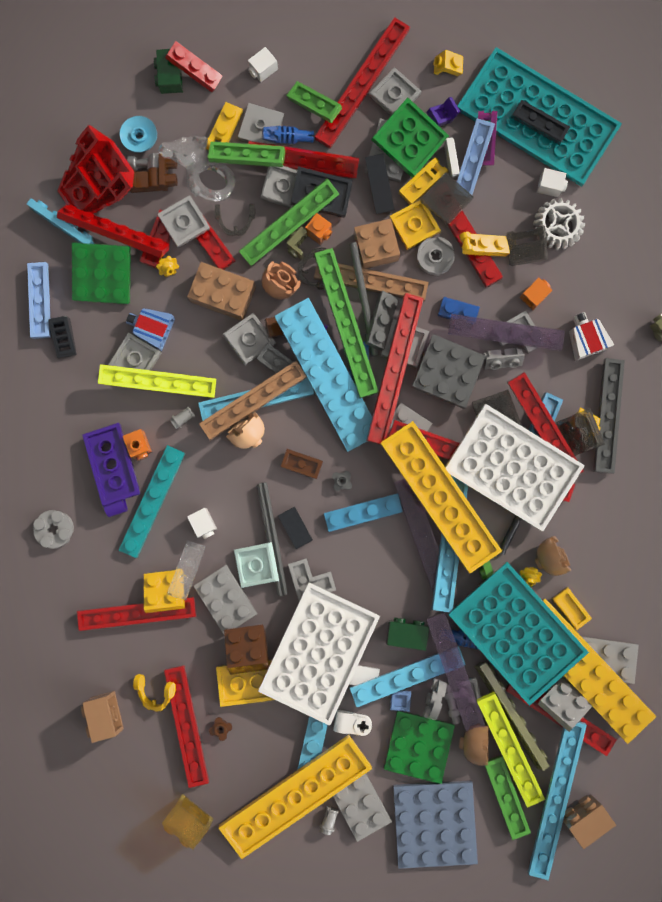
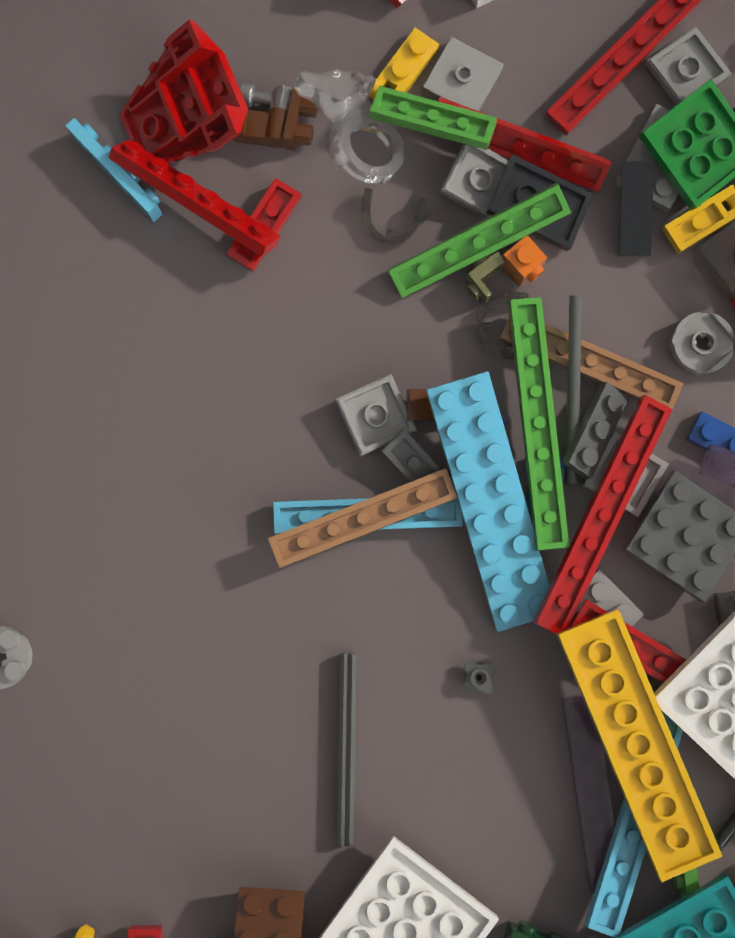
camera: 10 degrees right, 0 degrees up
(39, 300) = (53, 283): light blue plate -> none
(56, 338) = (67, 338): black slope -> none
(101, 273) = (161, 260): green plate -> none
(116, 483) = (115, 607): dark purple hinge -> none
(130, 615) = (102, 825): red plate -> none
(135, 354) = (186, 409): light grey plate -> none
(137, 444) = (161, 549): orange brick -> none
(138, 126) = (261, 39): medium azure dish -> none
(151, 327) = (223, 363): torso -> none
(152, 501) = (165, 646): teal plate -> none
(155, 592) = (154, 798): yellow plate -> none
(157, 381) = (214, 454): neon yellow plate -> none
(167, 266) = (269, 271): yellow plant -> none
(182, 417) = (242, 520): light grey pin -> none
(183, 221) = (310, 205): light grey plate -> none
(186, 570) = (198, 774): clear tile -> none
(202, 523) = (239, 700): white brick -> none
(215, 249) = (346, 248): red tile -> none
(221, 291) = (347, 329): medium nougat brick -> none
(225, 599) = (251, 832): light grey plate -> none
(247, 432) = (342, 567): light nougat cylinder -> none
(256, 565) = (312, 787): light aqua plate -> none
(279, 280) = (445, 332): nougat cylinder -> none
(286, 135) = (502, 99): blue hinge -> none
(295, 527) = (387, 738): black tile -> none
(301, 464) = (419, 636): reddish brown plate -> none
(302, 576) = (384, 823): light grey plate -> none
(314, 102) = (557, 56): bright green plate -> none
(363, 512) = (502, 736): dark azure plate -> none
(376, 243) = (613, 304): medium nougat brick -> none
(414, 224) = (678, 285): yellow plate -> none

